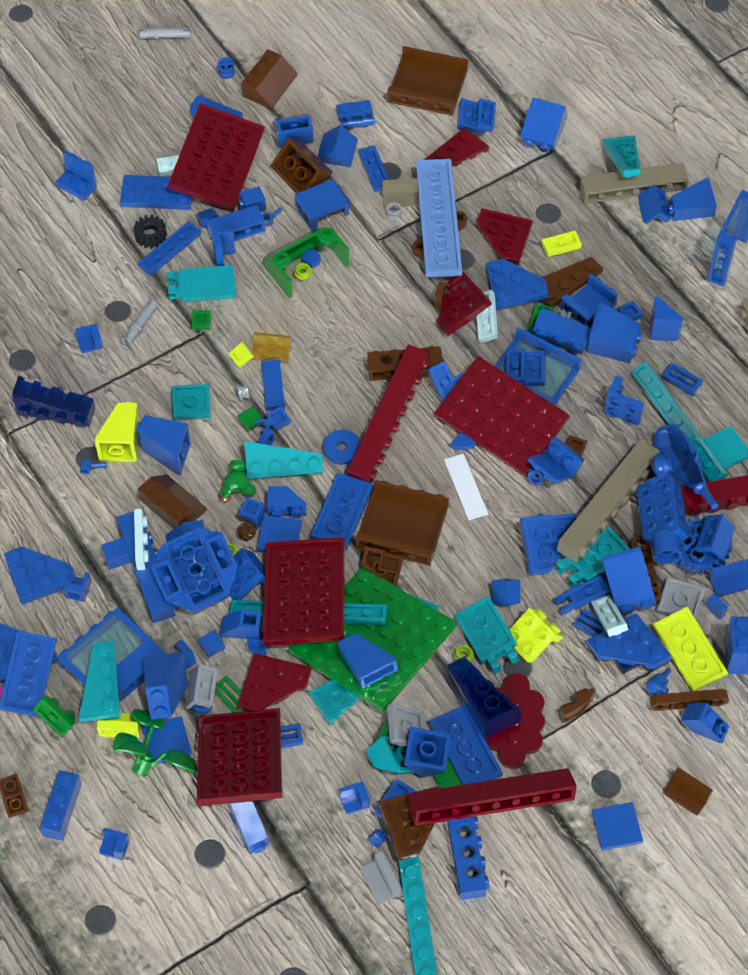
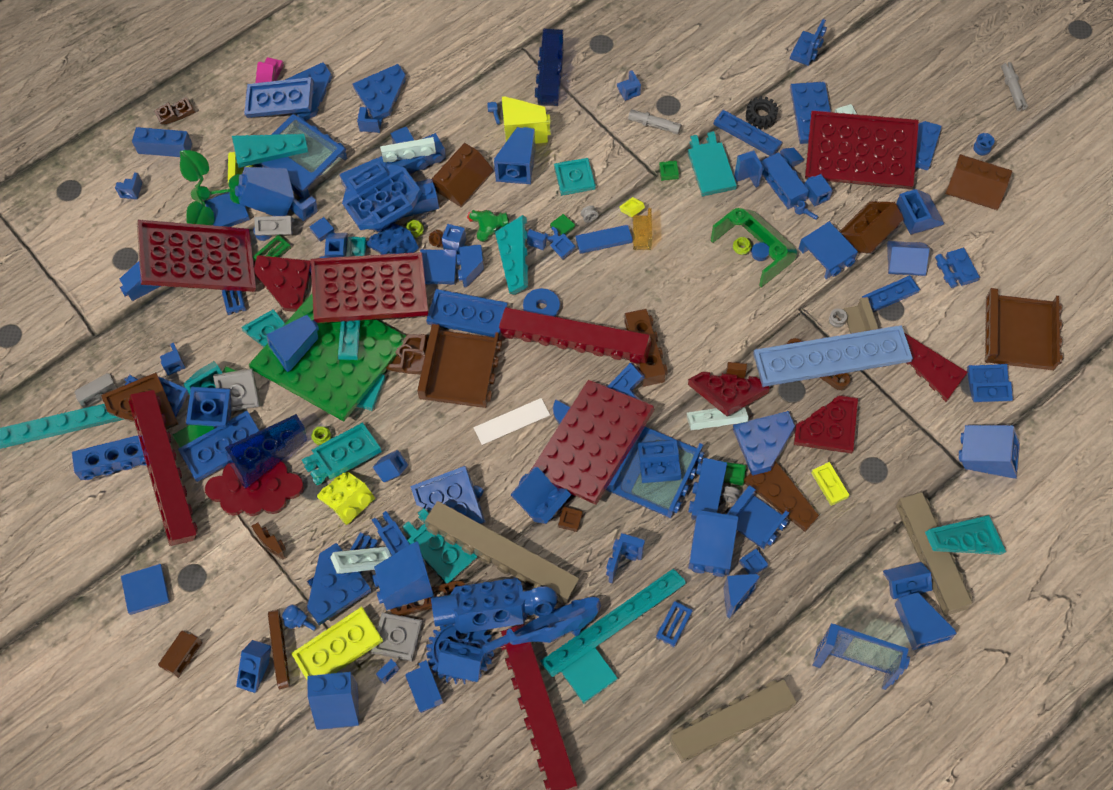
camera: 85 degrees right, 5 degrees up
(54, 716) = (248, 118): green tile -> none

